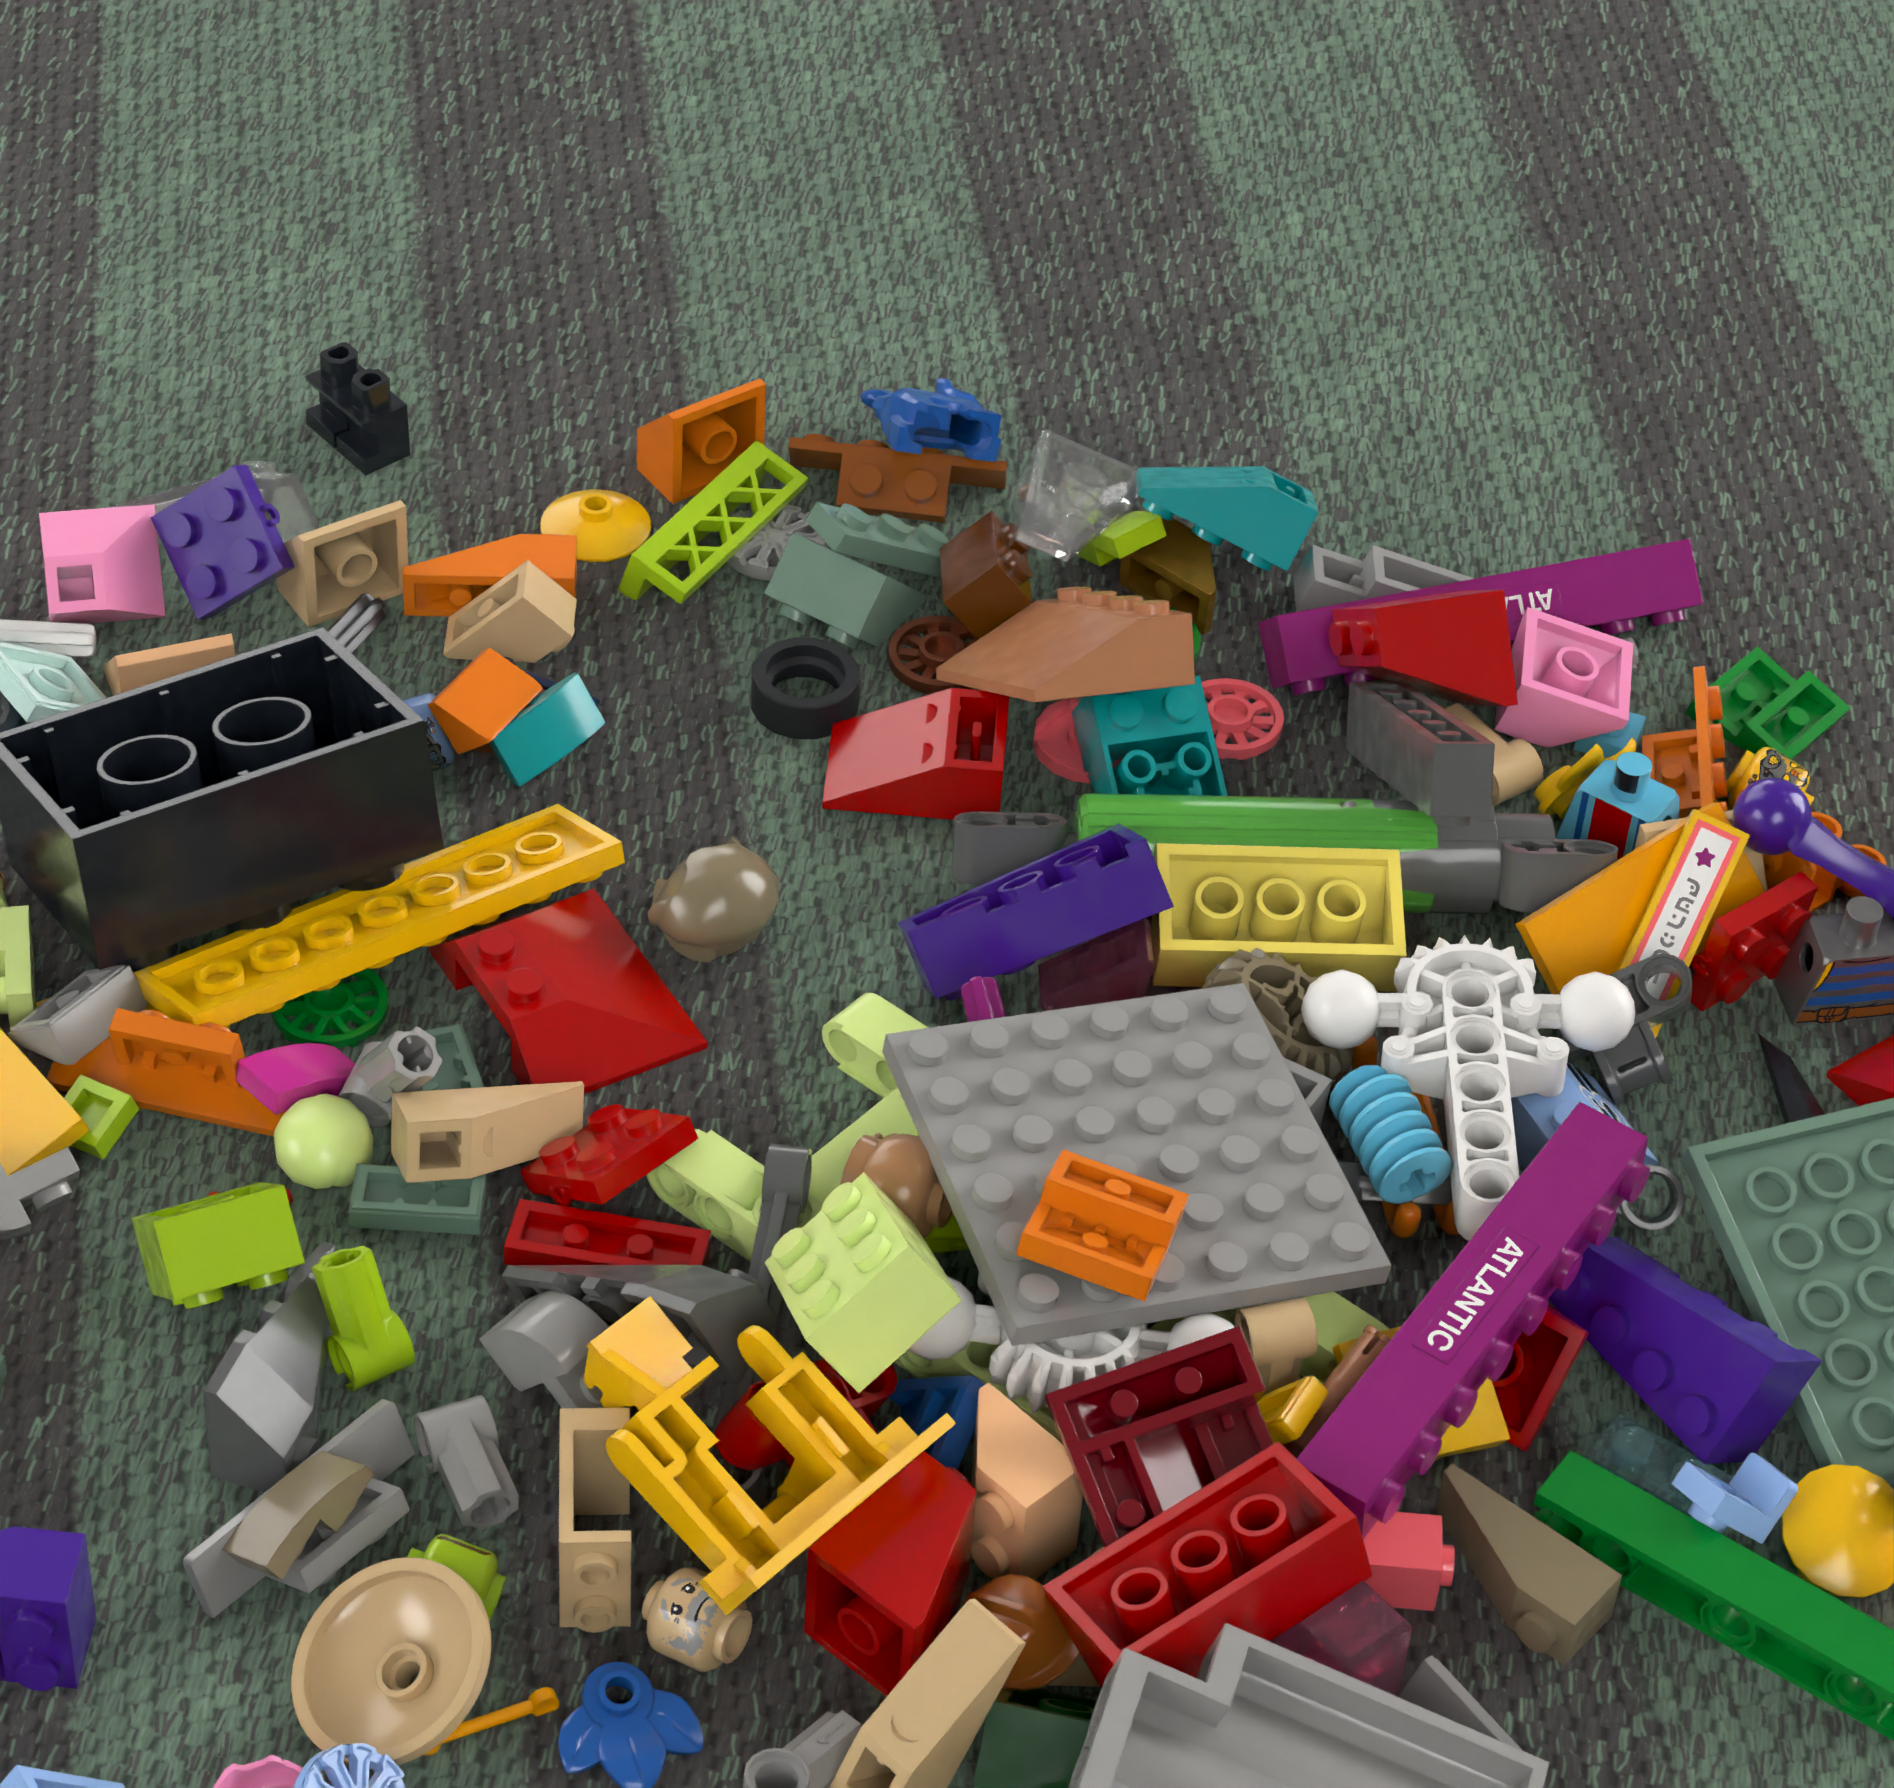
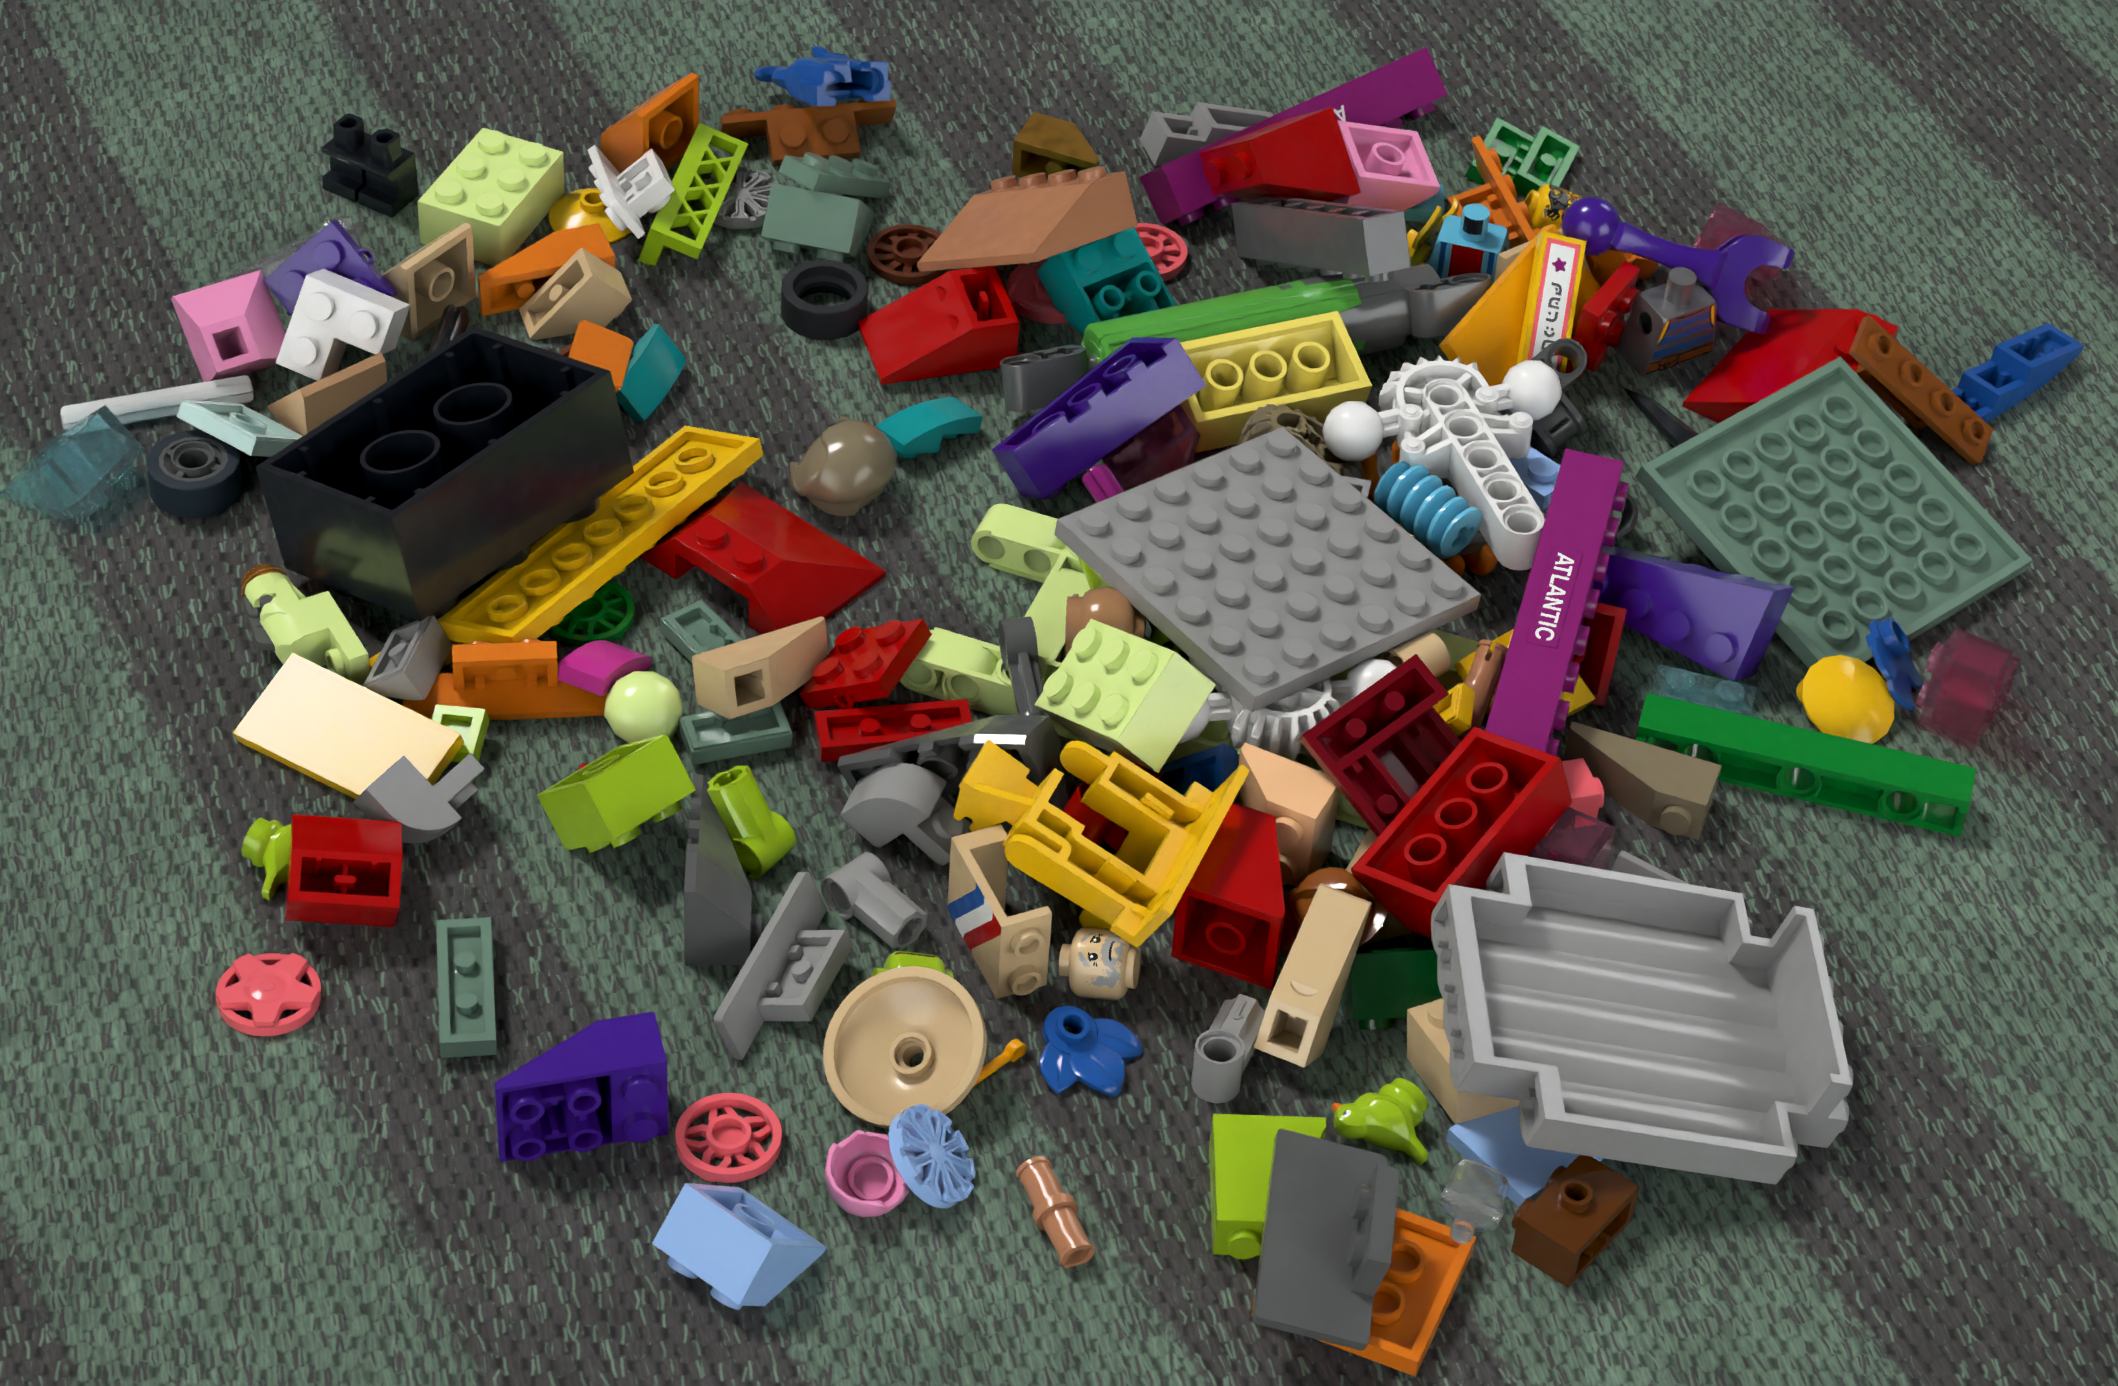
camera: 20 degrees left, 0 degrees up
(140, 1715) = (728, 1138): none -> coral wheel
(207, 580) = (335, 313): none -> white brick
(311, 1495) = (780, 963): dark tan slope -> none
(387, 1067) = (670, 645): light grey piece -> none
(480, 475) = (496, 187): none -> yellowish green brick
(628, 502) = (634, 192): none -> white bracket
(835, 871) = (925, 424): none -> teal slope
(985, 575) = (925, 184): reddish brown brick -> none
(1069, 496) = (955, 112): clear wedge -> none
(1103, 1225) = (1283, 611): orange slope -> none
(1124, 537) = (1007, 135): lime slope -> none
(1237, 504) = (1084, 91): teal slope -> none
(1747, 1504) = (1778, 694): light blue bracket -> none

